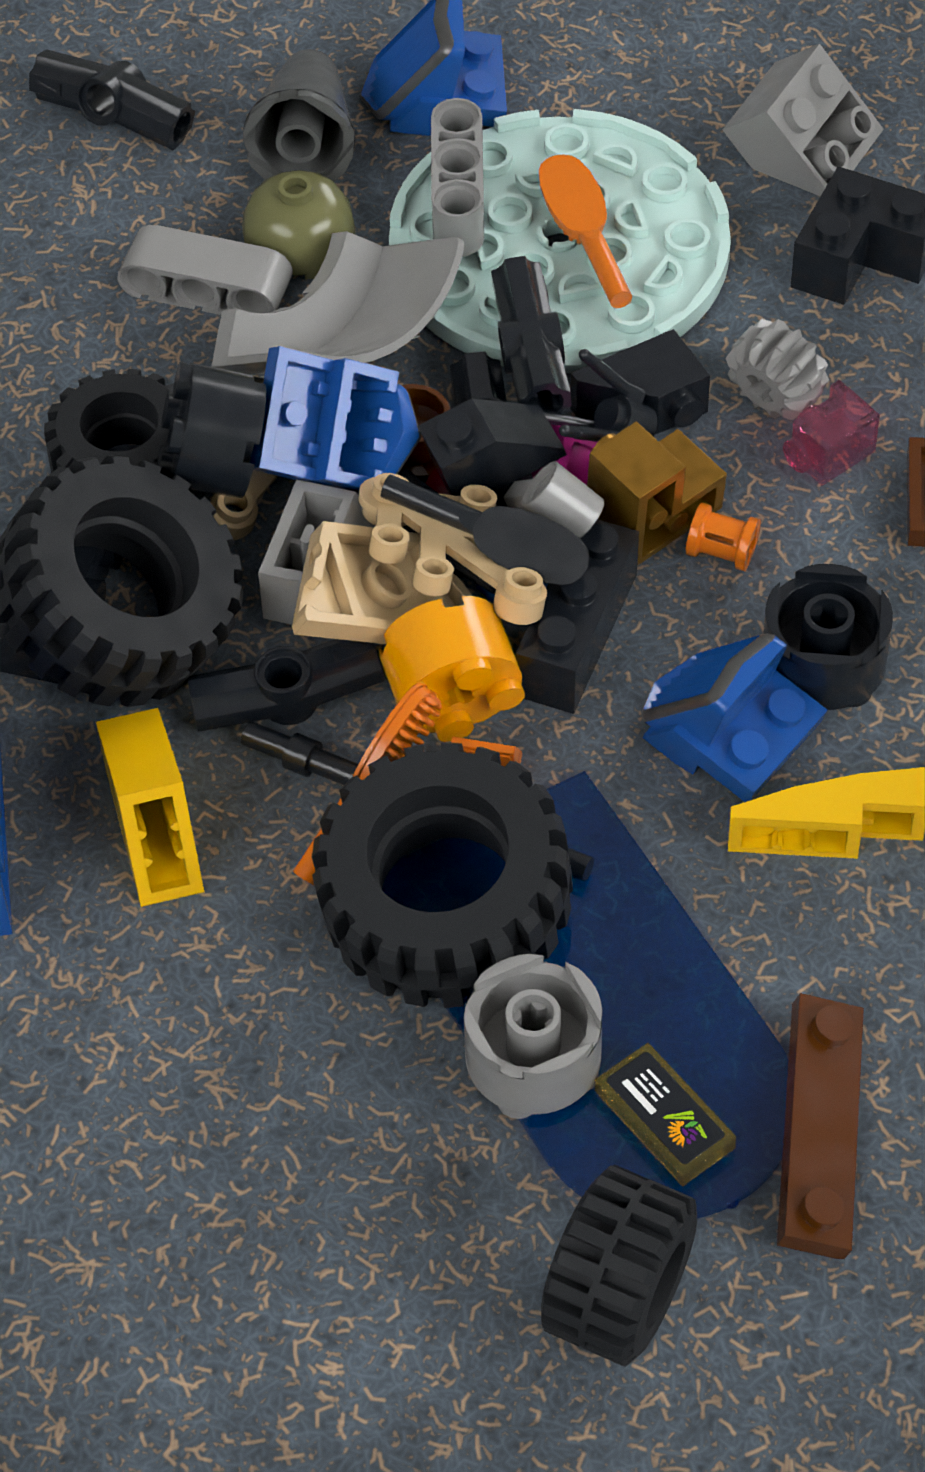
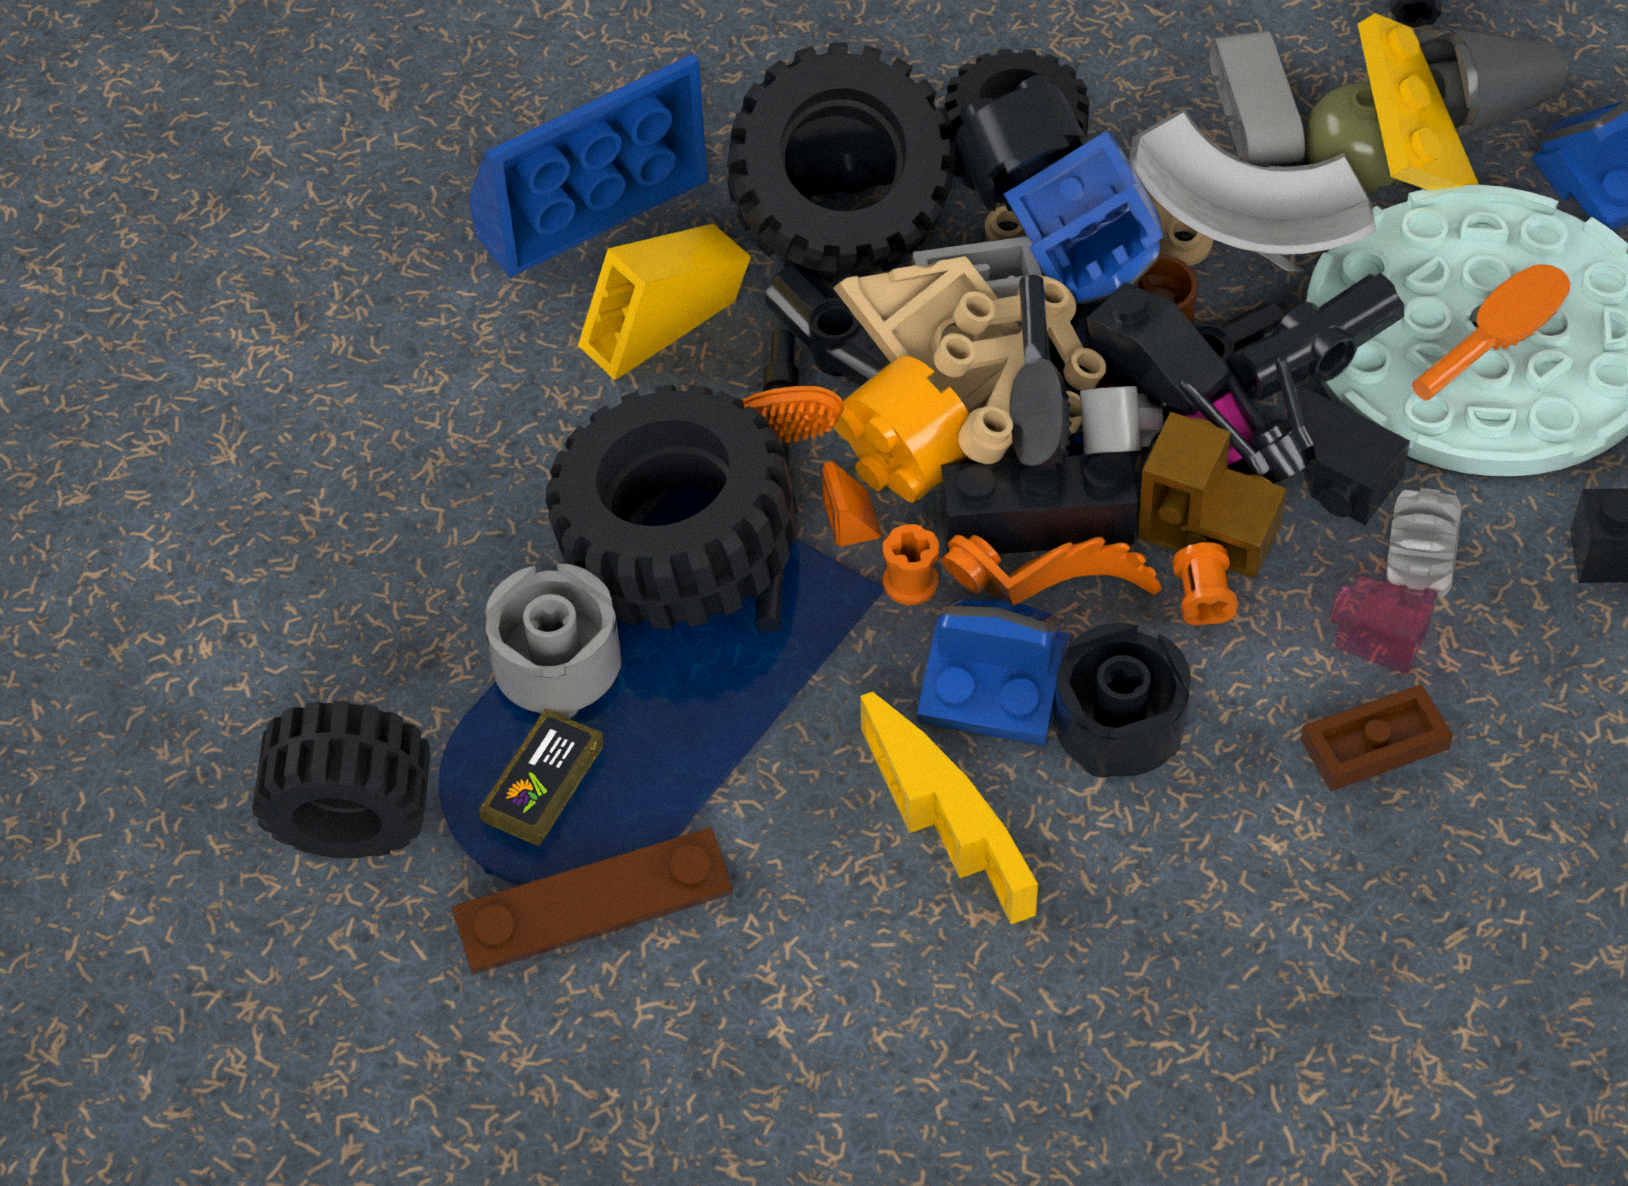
camera: 65 degrees right, 0 degrees up
(319, 162) = (1410, 110): none -> yellow wing
(457, 173) = (1476, 209): light grey beam -> none
(594, 737) = (909, 561): none -> orange bush
(643, 648) = (977, 568): none -> orange plant

